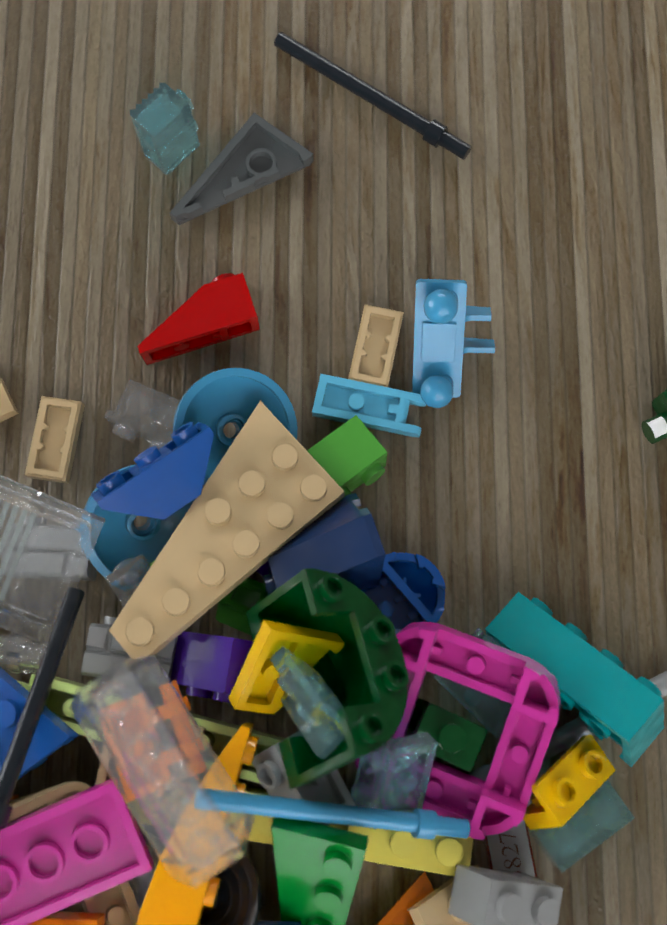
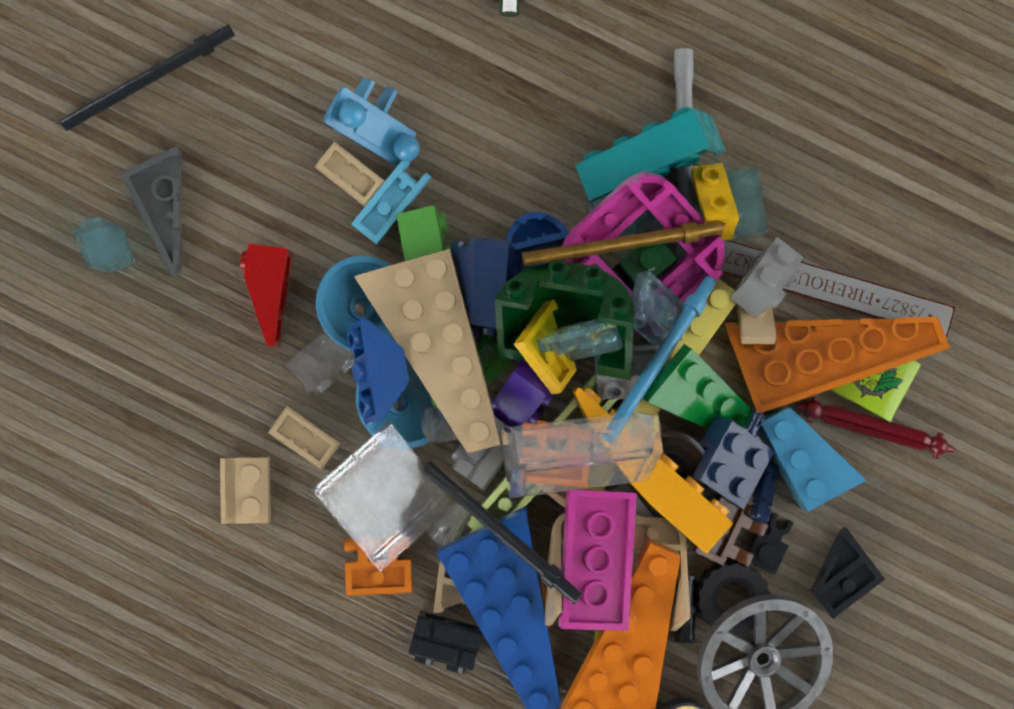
camera: 65 degrees left, 10 degrees up
(507, 768) = (686, 233): none -> pearl gold bar

